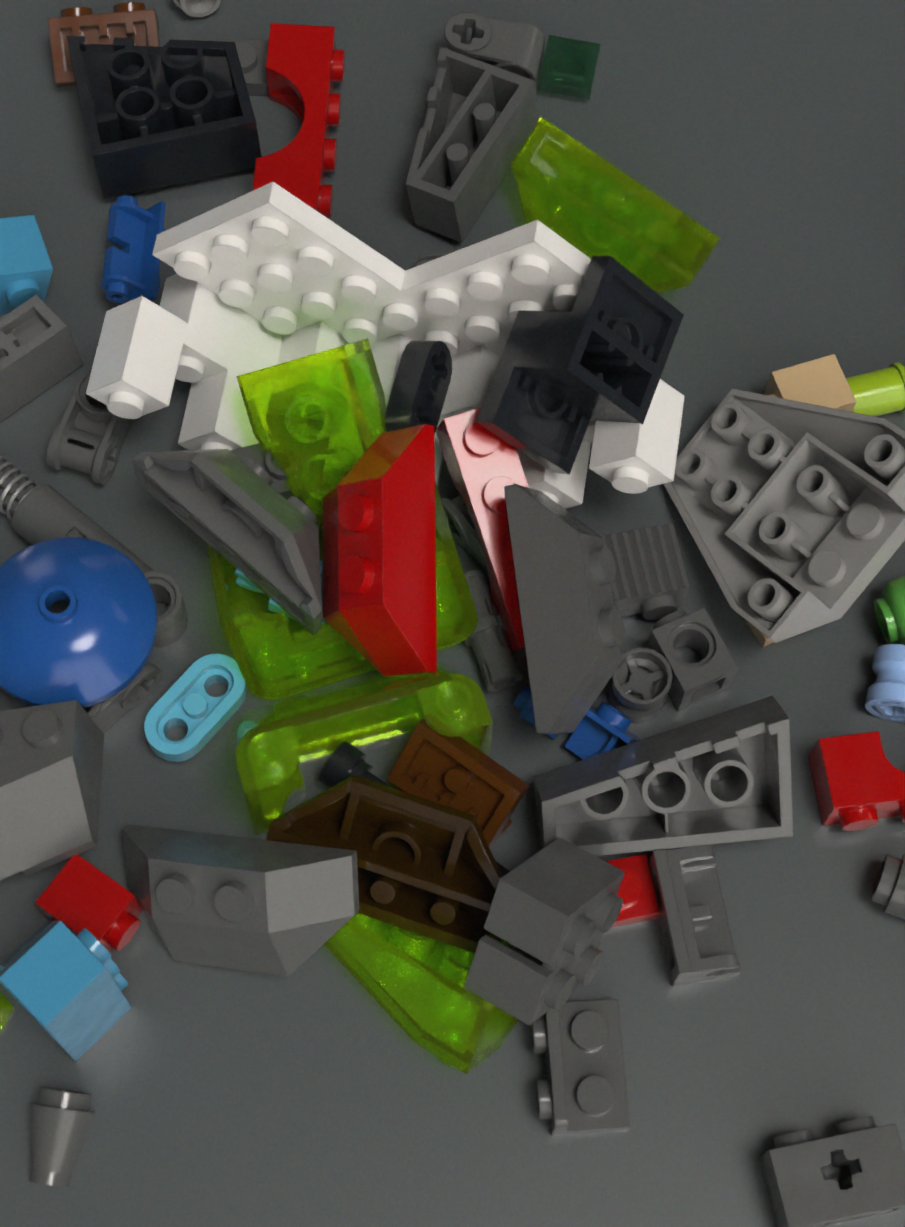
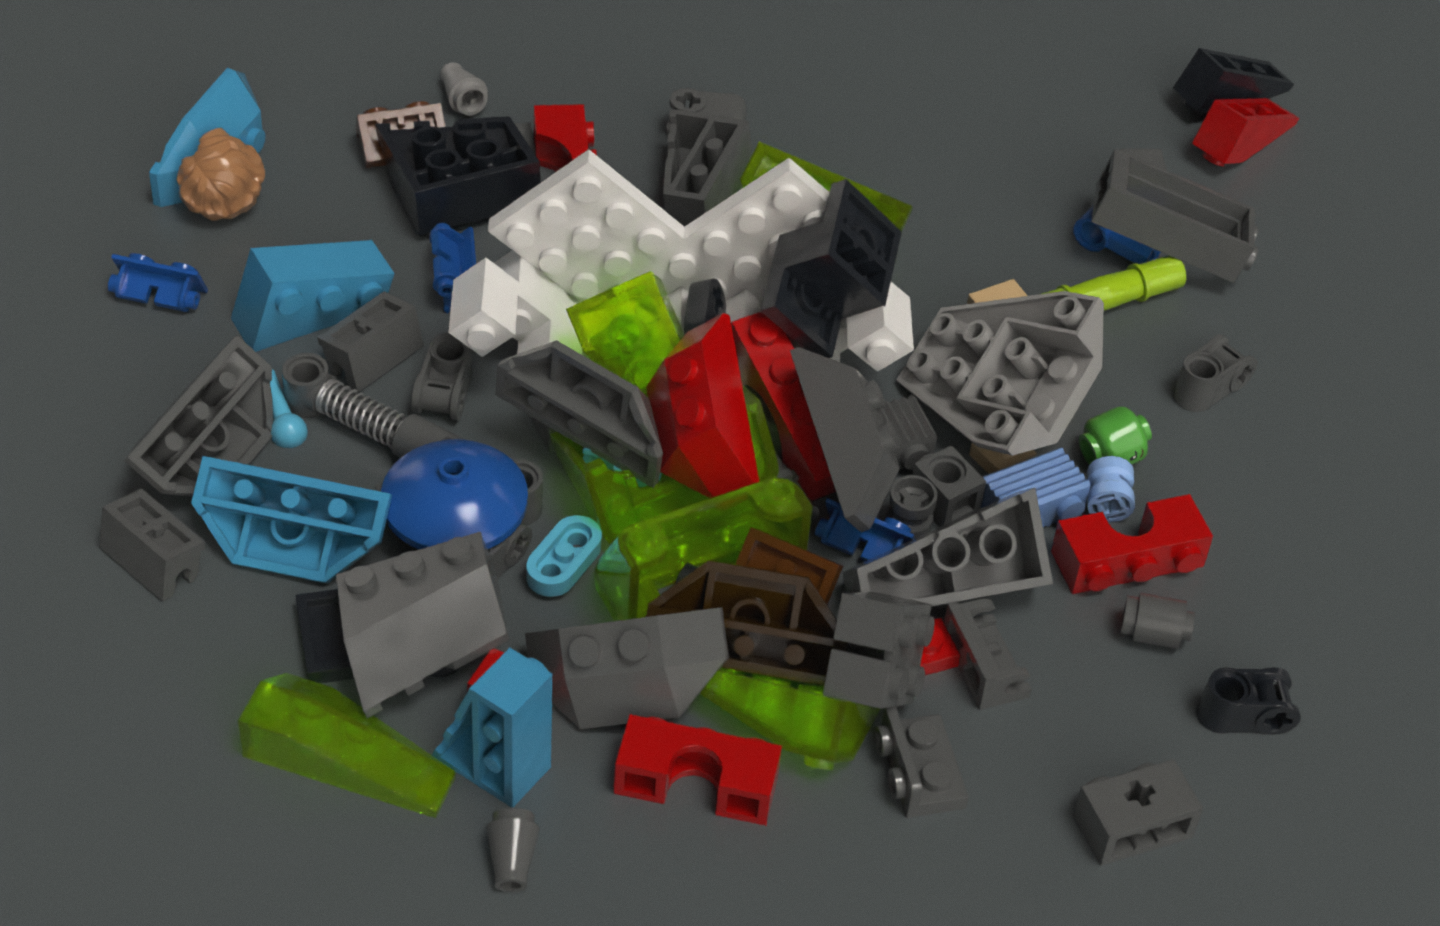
camera: 10 degrees left, 20 degrees down
(254, 1019) = (661, 752): none -> red arch
(569, 67) = (769, 123): clear green plate -> none
(806, 676) = (1058, 485): none -> medium blue brick

